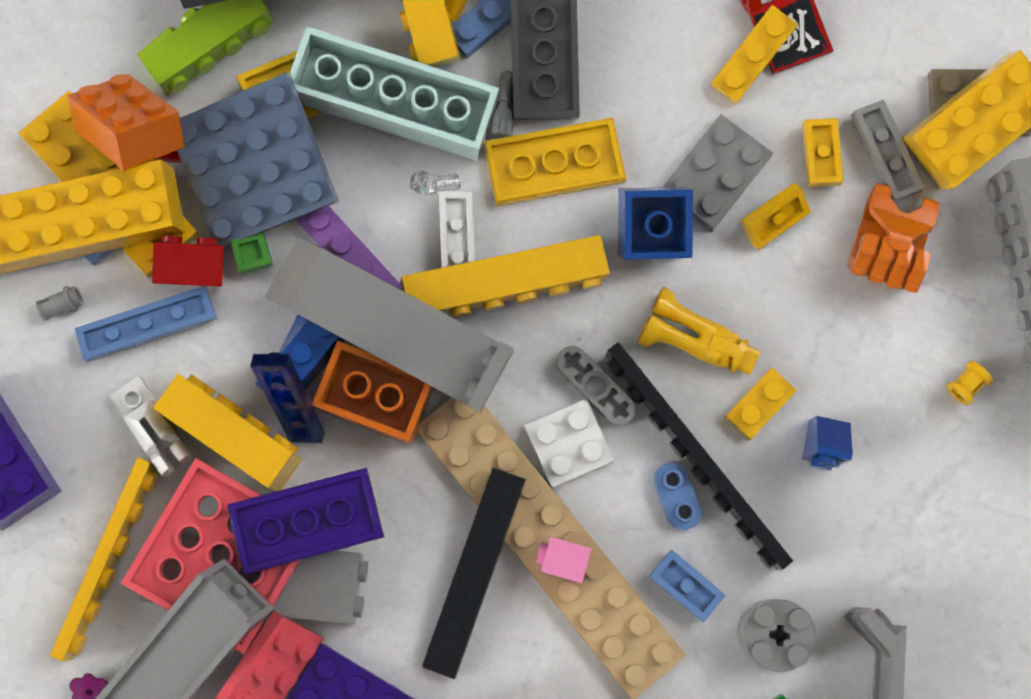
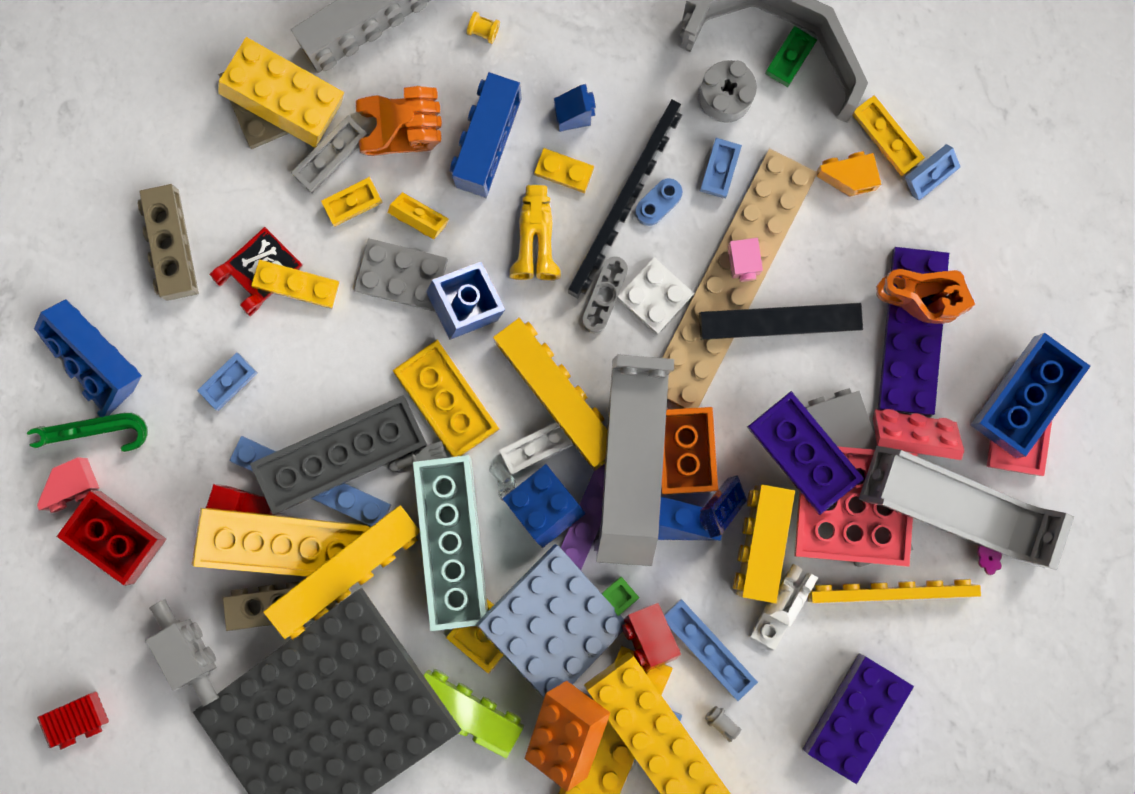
camera: 110 degrees left, 5 degrees up
(386, 210) = (543, 506): none -> blue brick
(839, 328) = (486, 135): none -> blue brick

